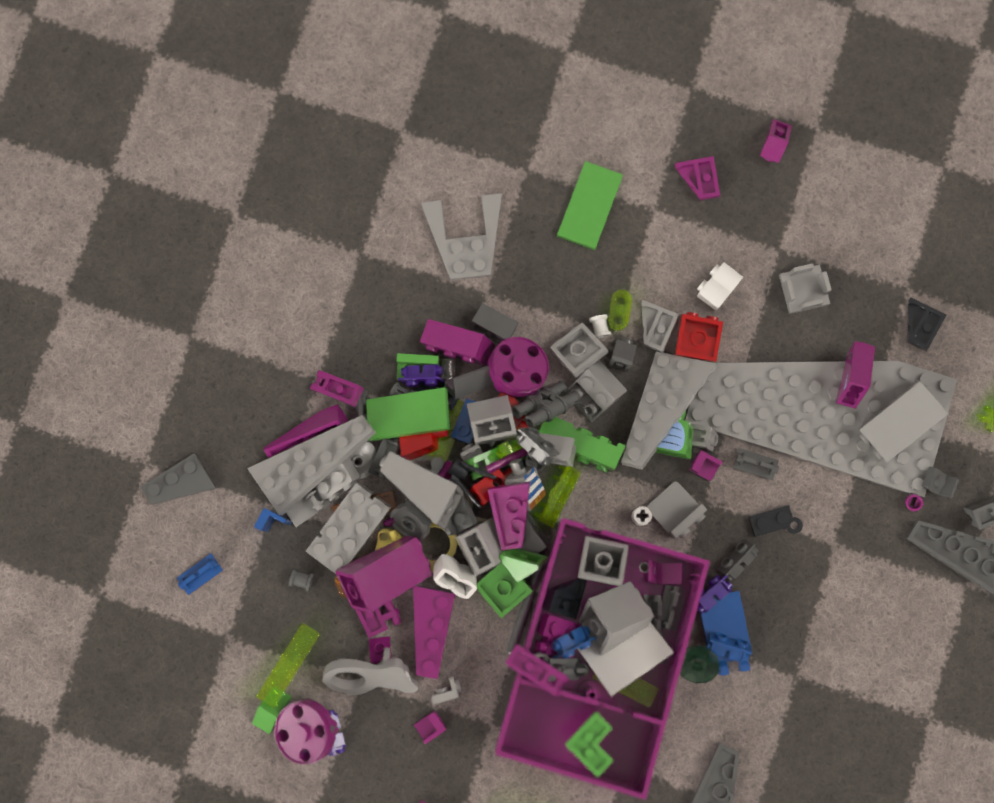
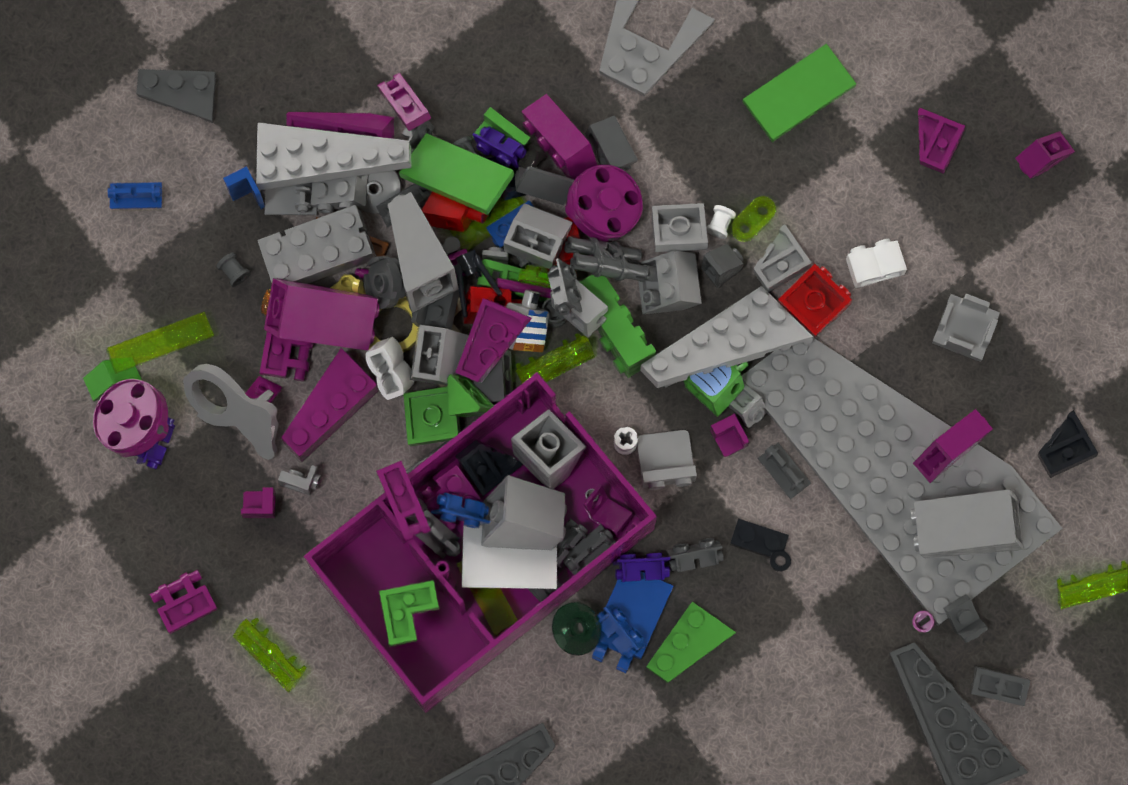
camera: 35 degrees right, 5 degrees down
(773, 621) = (688, 642): none -> bright green wing

